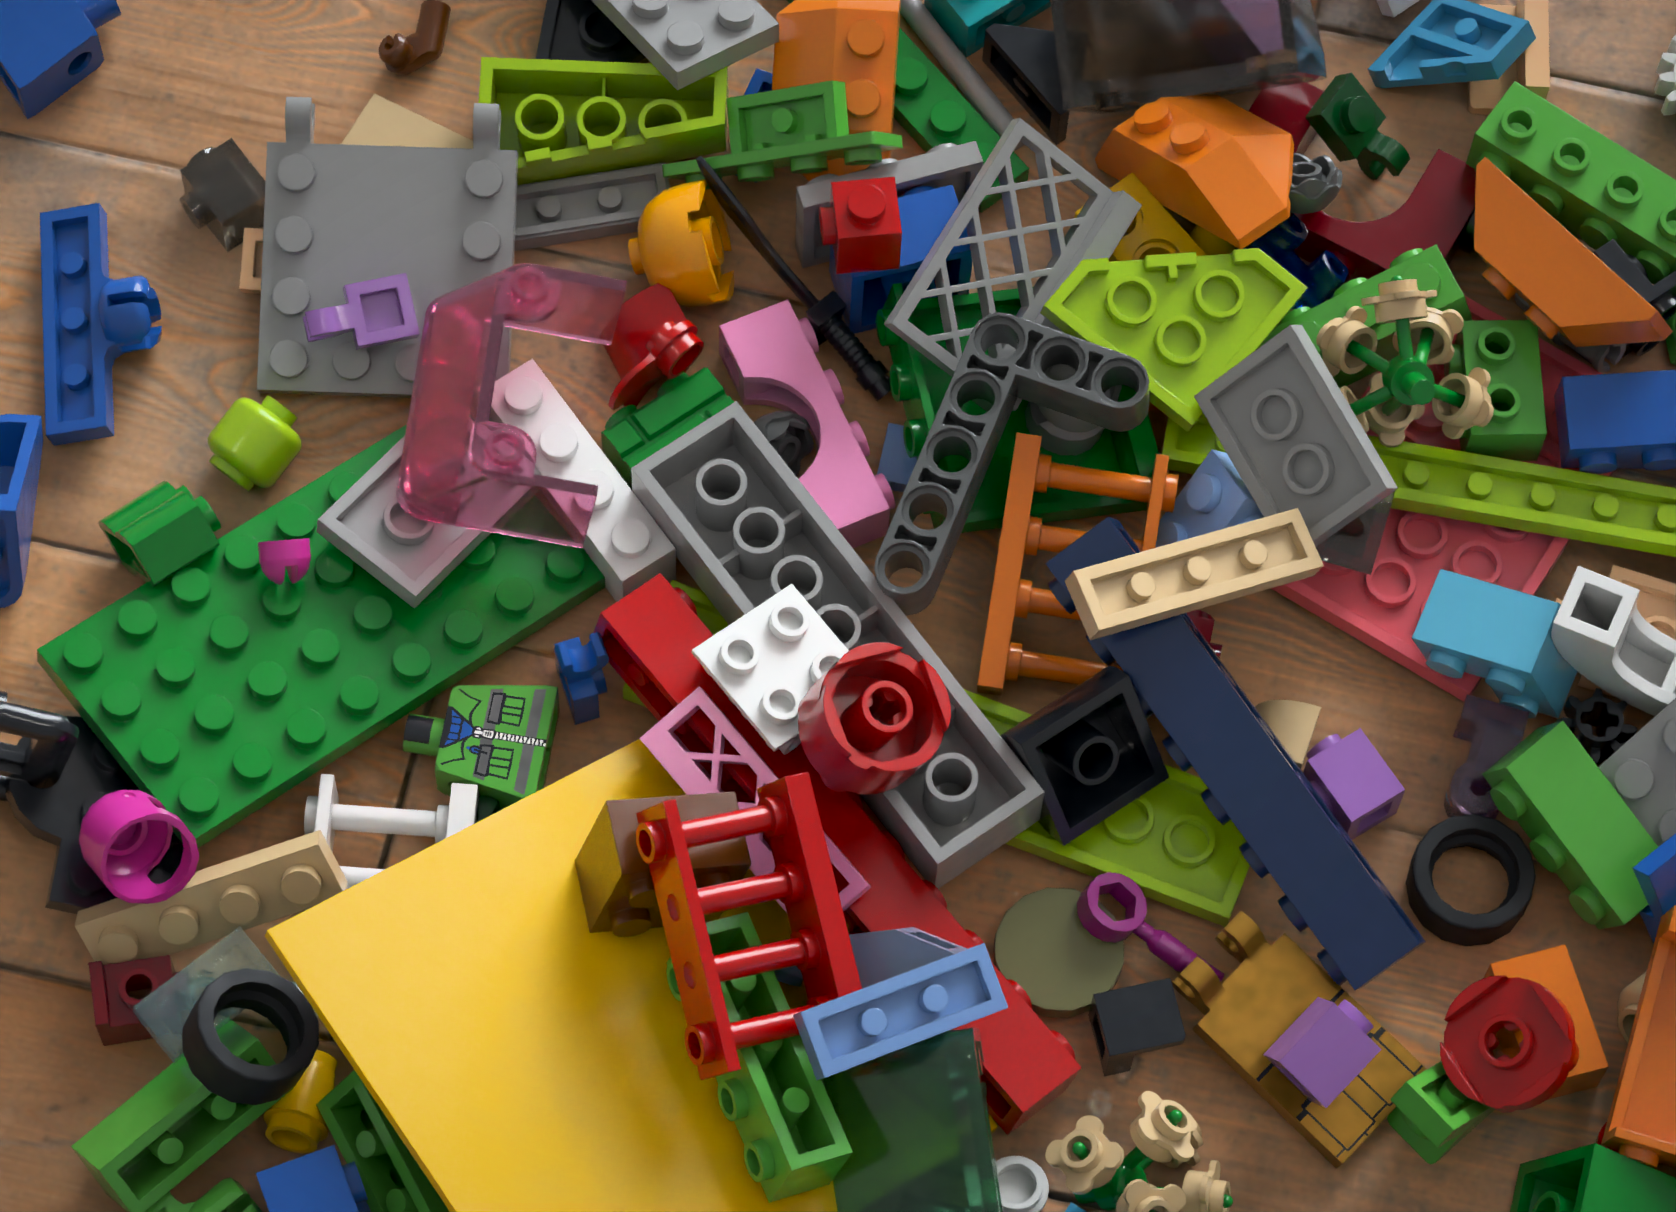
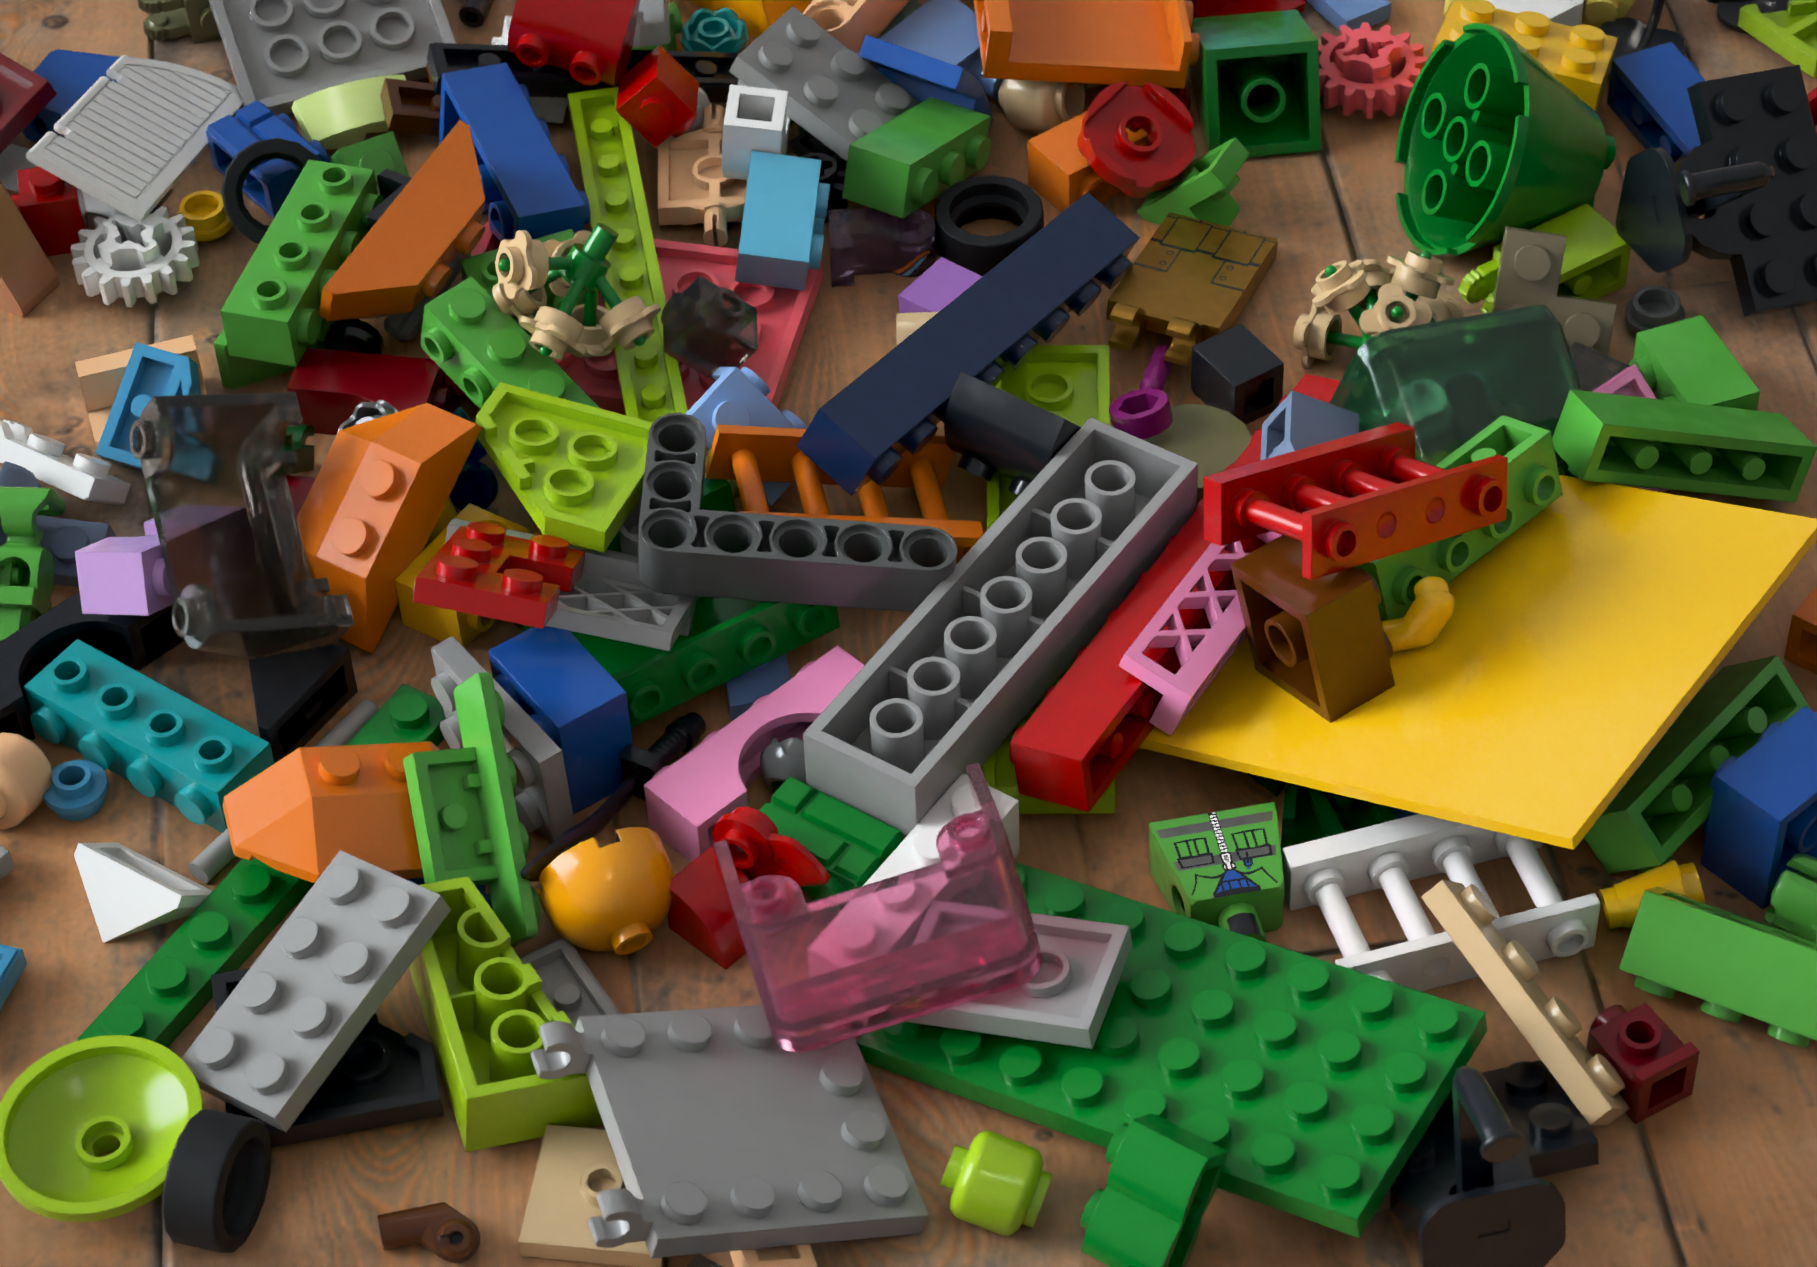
camera: 105 degrees left, 20 degrees down
(127, 838) = (1520, 1049): dark pink helmet -> none
(169, 1005) = (1616, 973): clear light blue plate -> none
(270, 997) = (1660, 913): black tyre -> none
(291, 553) = (1138, 1050): dark pink hinge -> none
(374, 311) = (818, 1094): medium lavender plate -> none
(582, 675) = (1121, 831): blue plate -> none
(645, 974) = (1424, 617): none -> yellow arm
(771, 663) = (1076, 606): white hinge -> none
(863, 225) = (579, 666): red brick -> none
(873, 719) = (1109, 491): red brick -> none
(900, 1011) = (1374, 391): medium blue plate -> none
(987, 145) = (500, 574): none -> red plate
(1193, 573) = (851, 339): tan plate -> none
(1295, 436) = (676, 326): light grey plate -> none
(1324, 1049) = (1207, 232): medium lavender brick -> none

